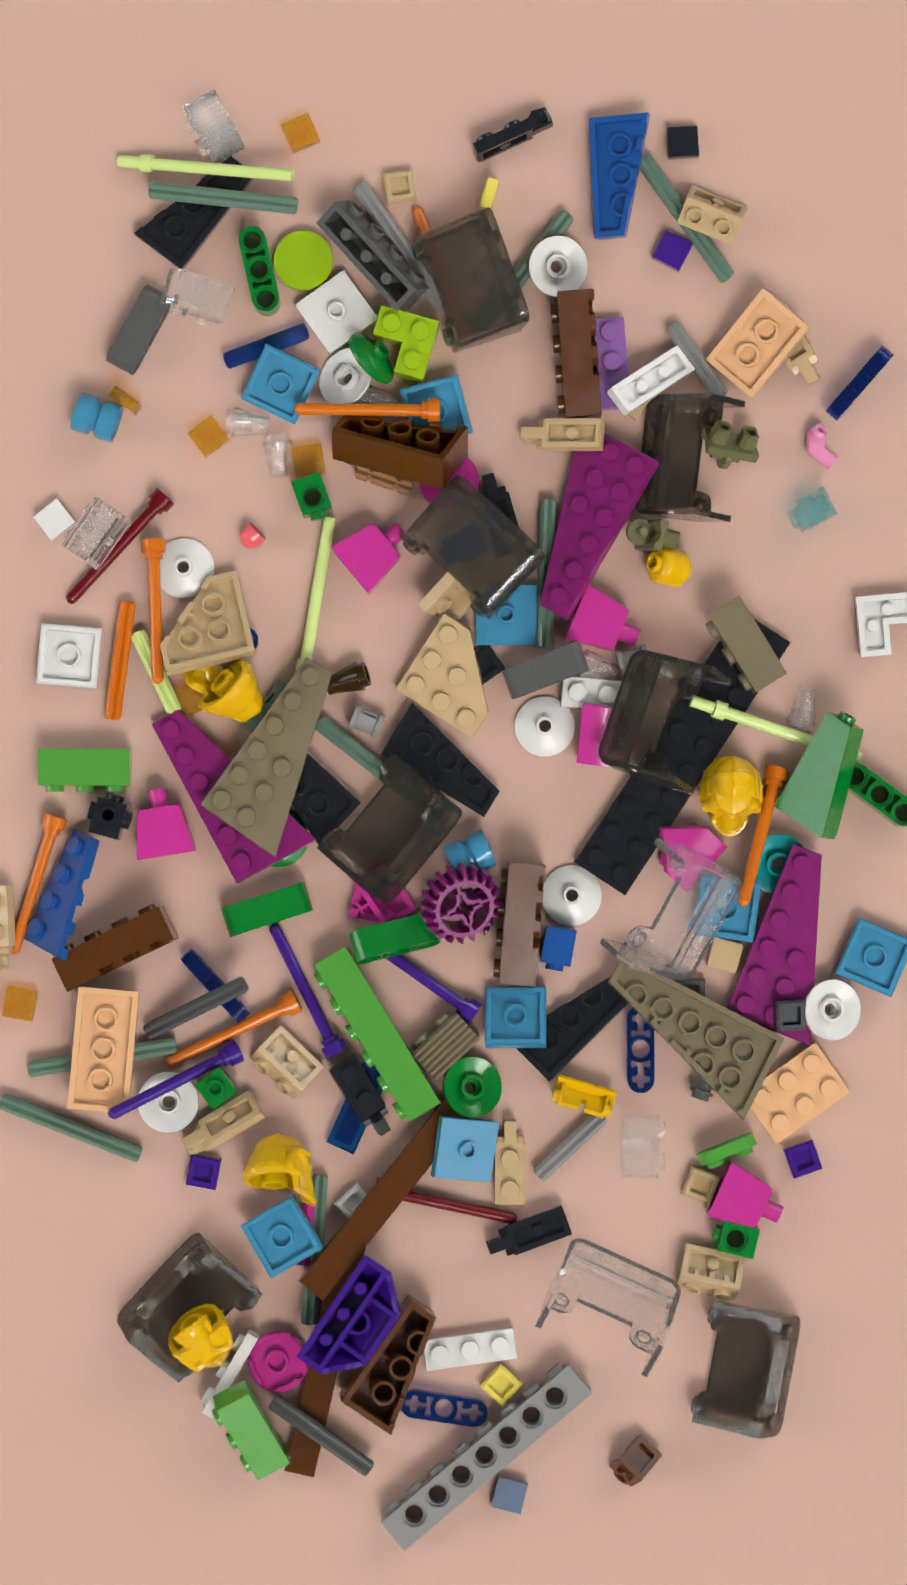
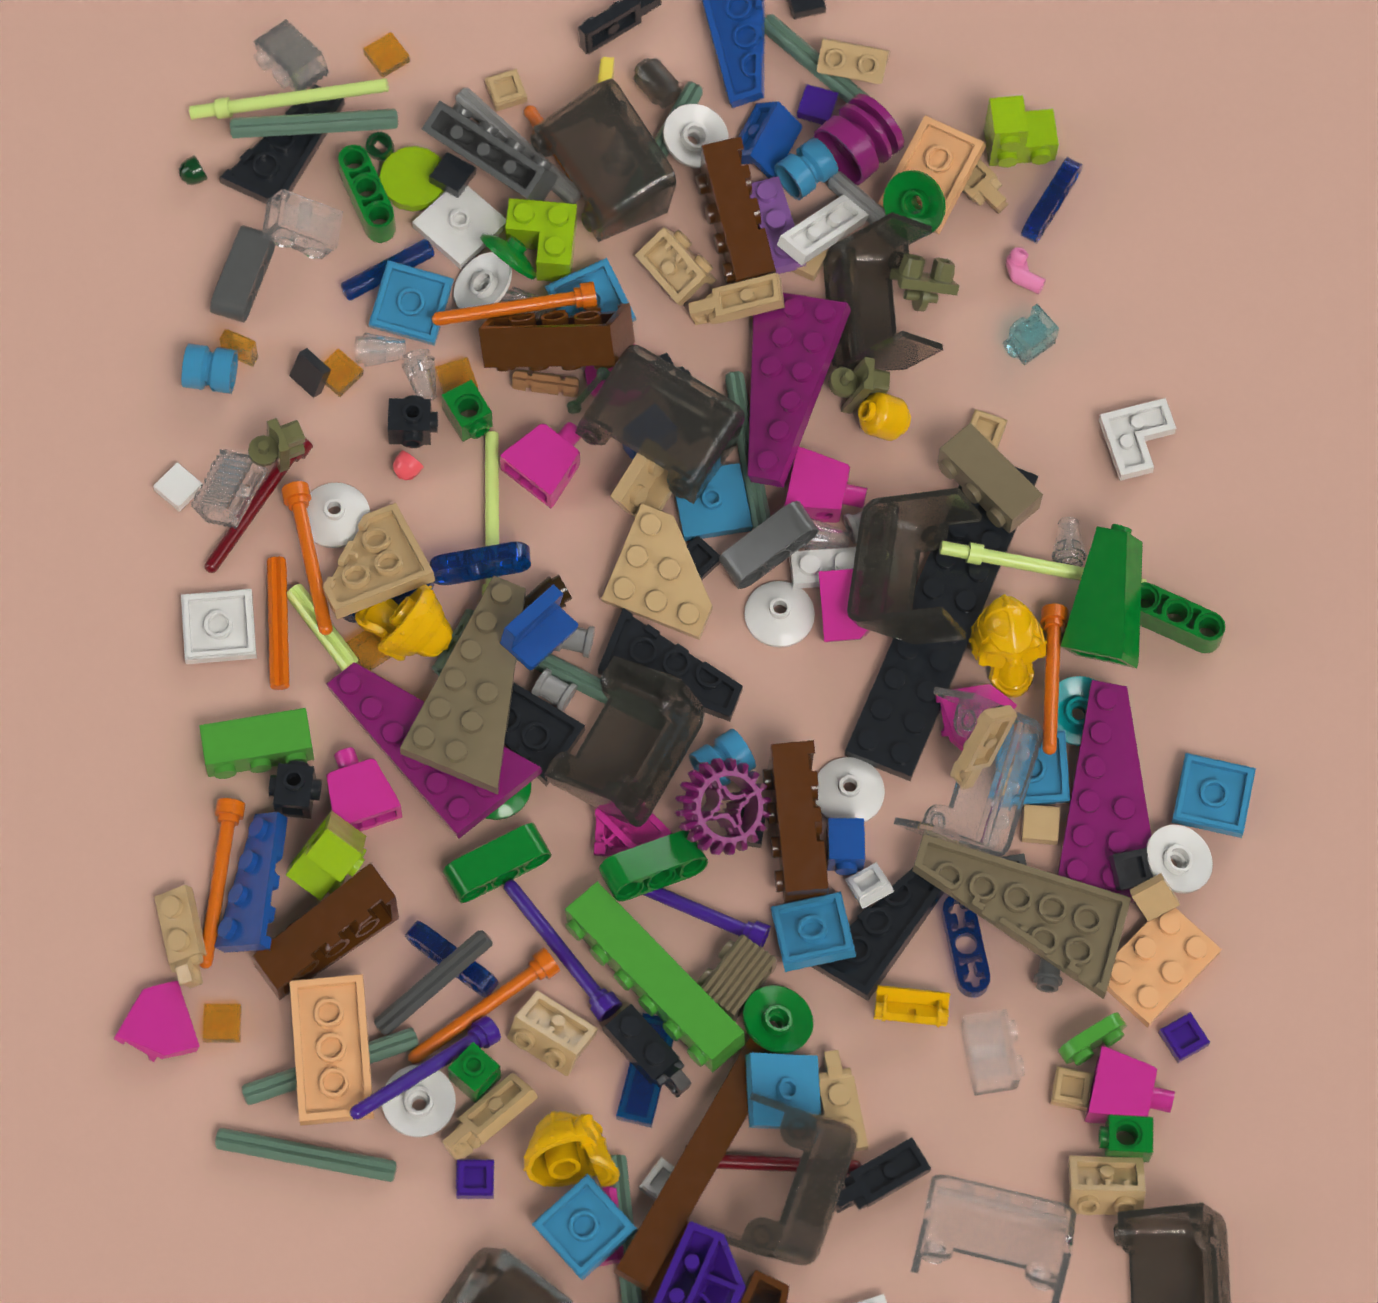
camera: 15 degrees left, 20 degrees down
(111, 220) = (192, 171): none -> dark green hinge
(127, 886) = (328, 857): none -> lime brick
(140, 509) = (281, 443): none -> olive hips
(182, 435) = (310, 372): none -> black tile
(253, 491) = (411, 421): none -> black brick
(273, 230) = (385, 140): none -> dark green hinge
(297, 643) = (481, 563): none -> clear blue beam
(336, 268) = (452, 174): none -> black tile
(336, 718) = (538, 629): none -> blue panel
(341, 765) = (554, 690): none -> light grey bush
(430, 493) = (575, 405): none -> hinge
(486, 1213) = (815, 1191): none -> clear smoke windscreen
(517, 387) = (675, 265): none -> tan bracket
(533, 205) = (657, 82): none -> clear smoke brick
(569, 1146) = (907, 1070): light grey axle -> none
(570, 984) = (869, 885): none -> white tile
(620, 277) = (768, 136): none -> blue panel
(648, 316) = (809, 166): none -> dark azure wheel
(687, 893) = (983, 744): none -> tan hinge
(705, 295) = (861, 137): none -> magenta wheel
(735, 373) = (902, 194): none -> green dish
(754, 590) = (989, 426): none -> tan tile
(803, 1042) = (1154, 897): none -> tan tile
(844, 317) = (1018, 134): none -> lime brick

